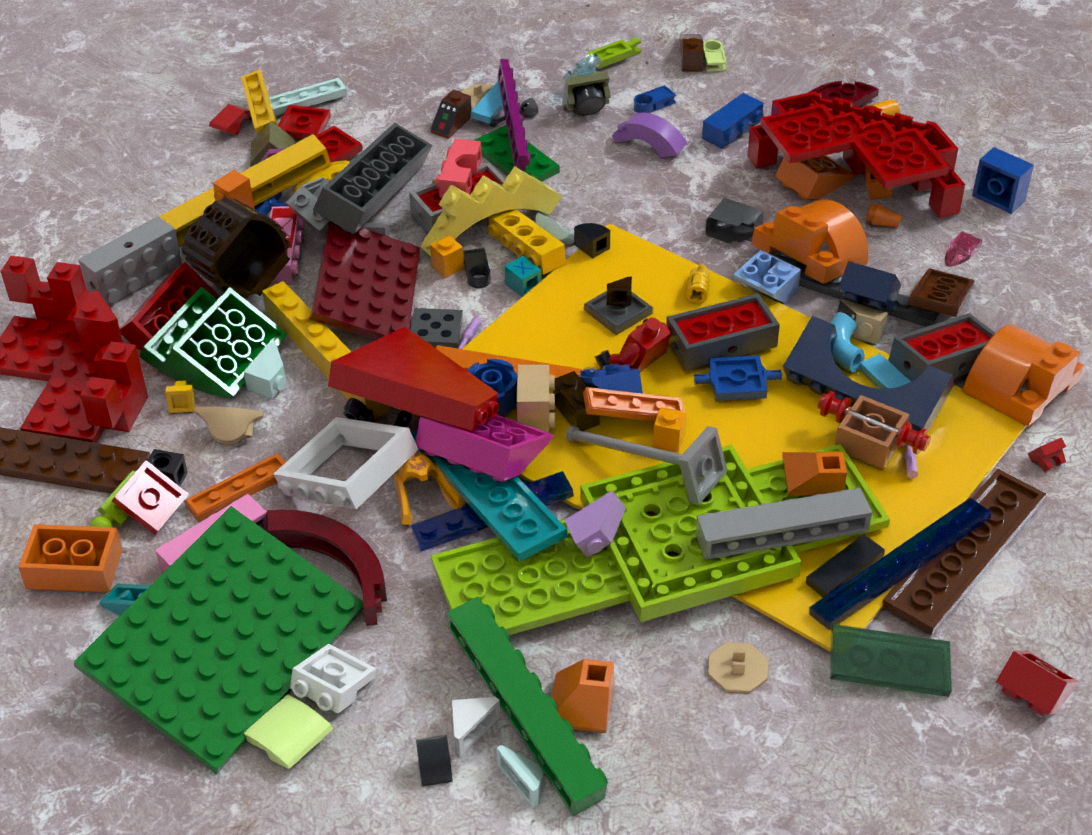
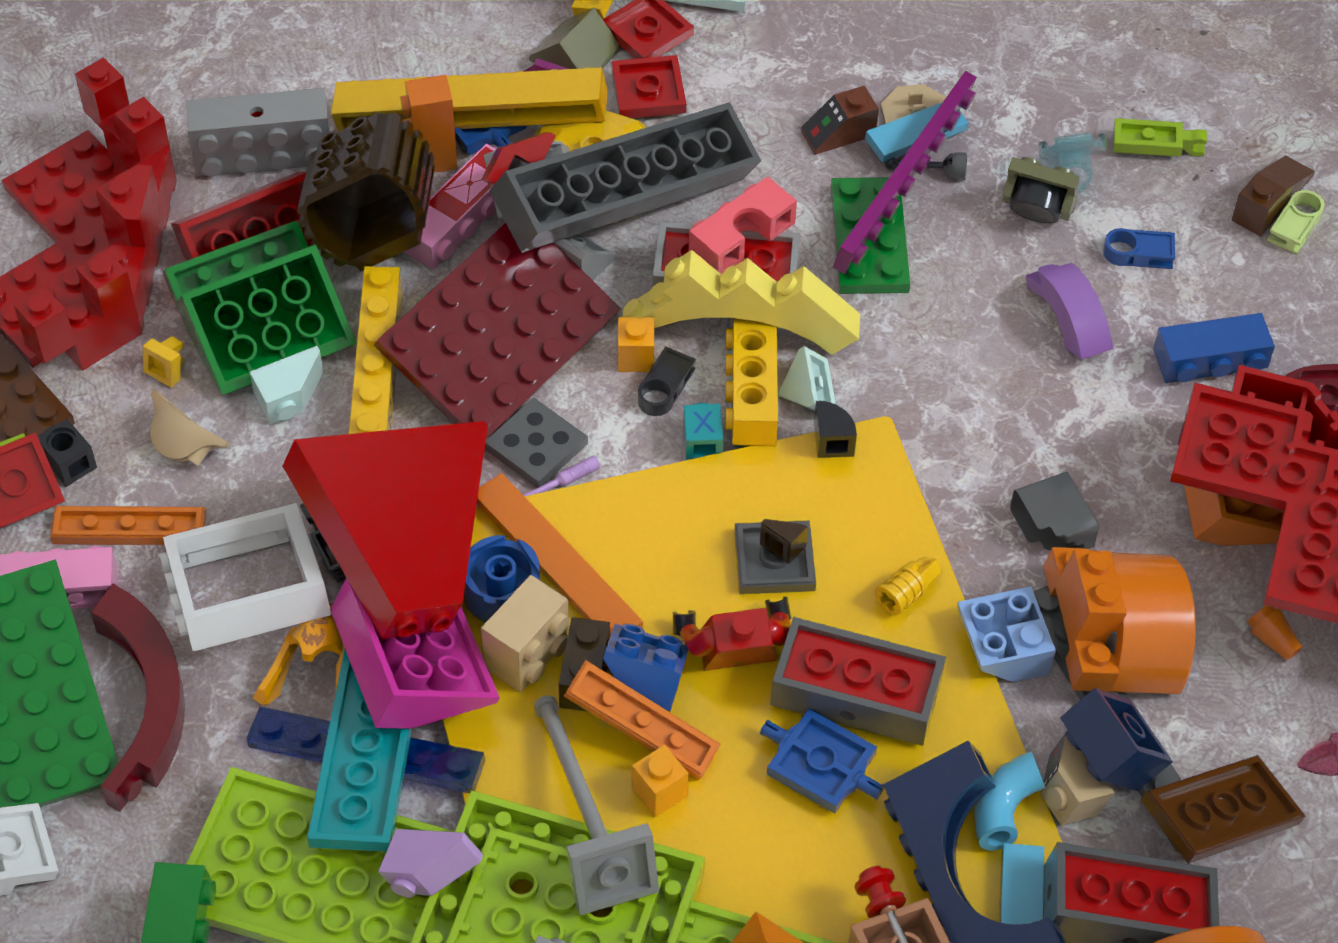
camera: 35 degrees right, 10 degrees up
(306, 192) = (527, 150): none -> red slope

